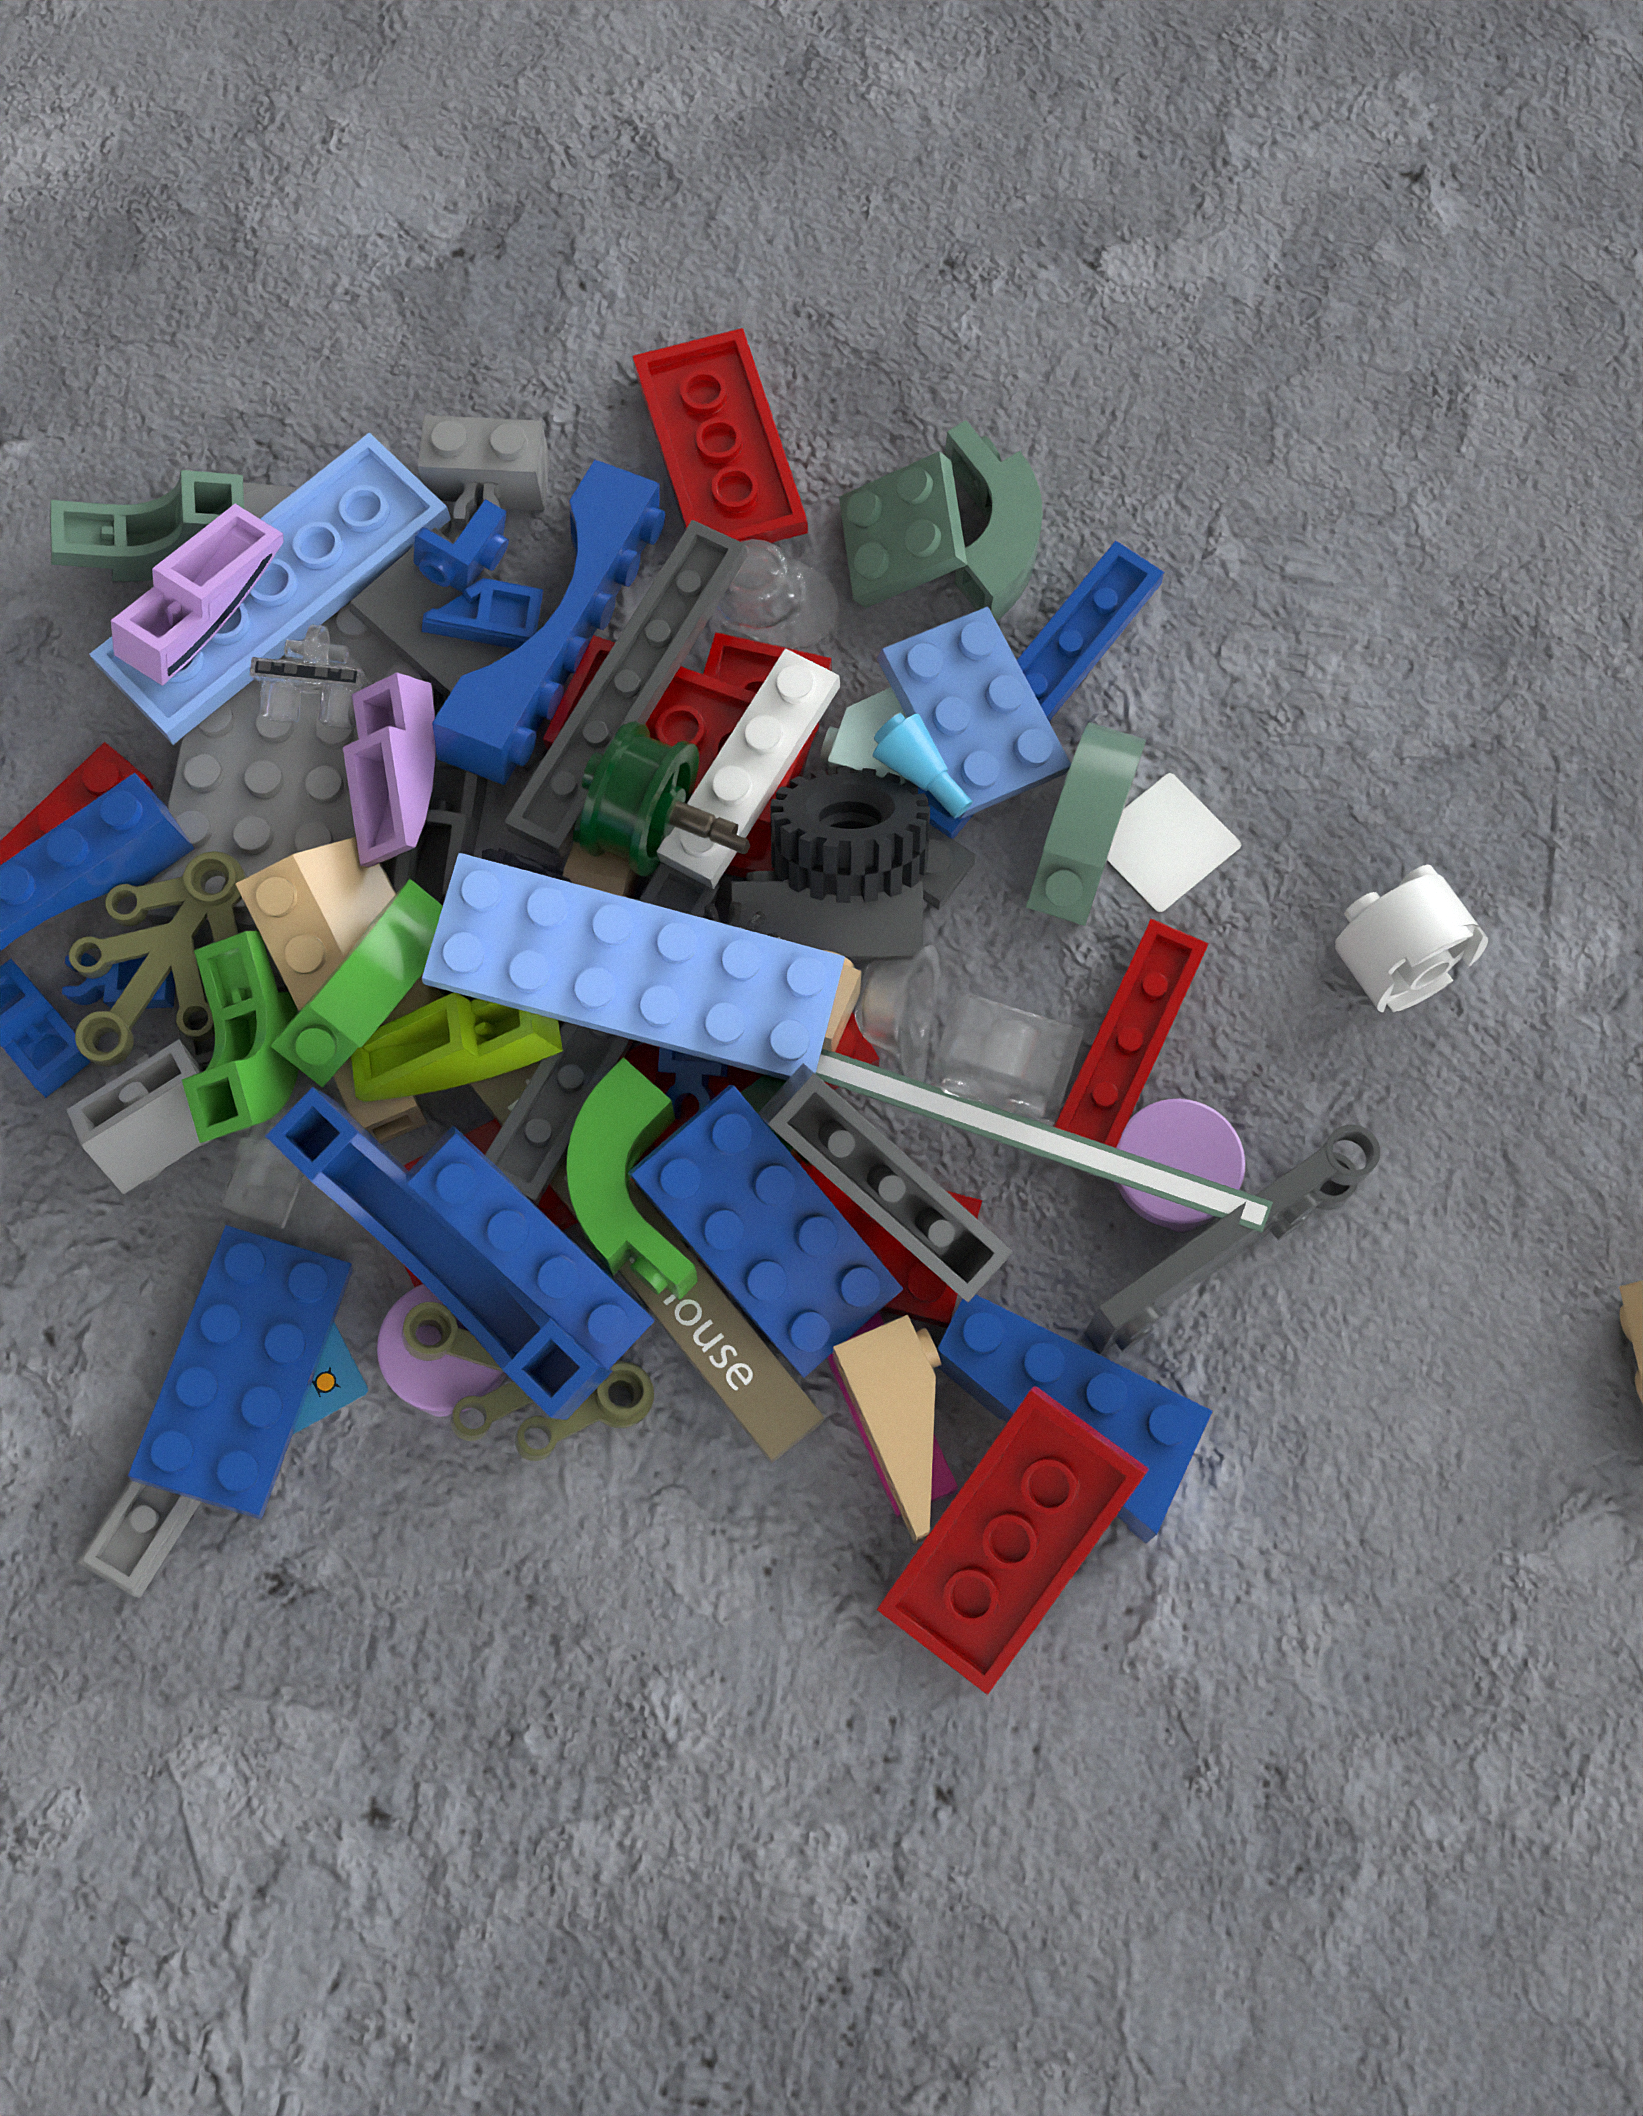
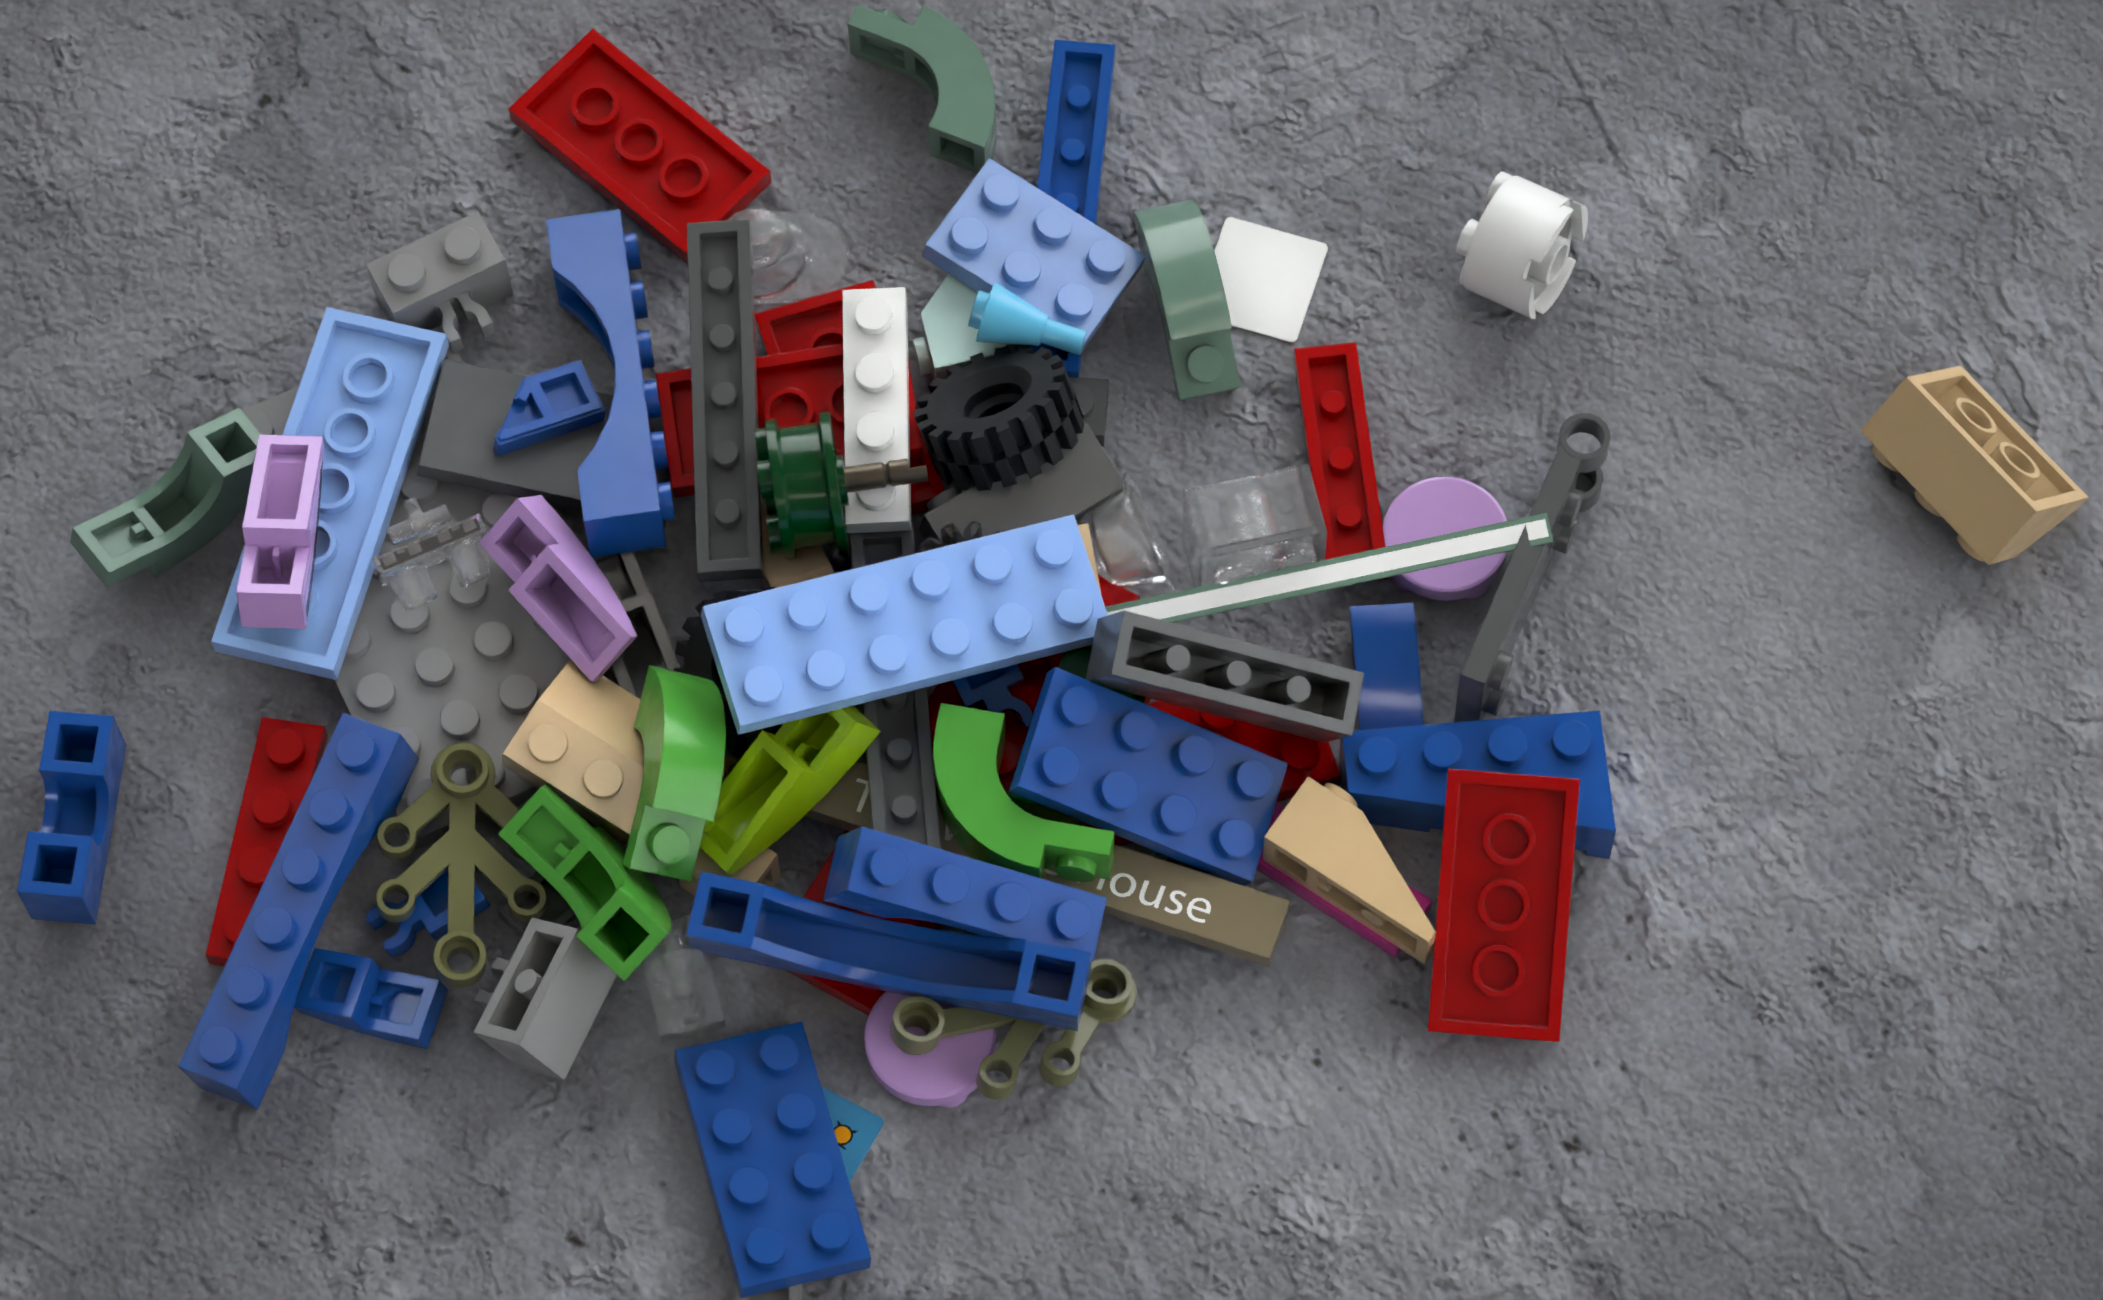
camera: 30 degrees left, 5 degrees down
(476, 548) = (492, 380): blue bracket -> none
(902, 530) = (862, 133): sand green plate -> none
(1052, 1250) = (1388, 656): none -> blue slope

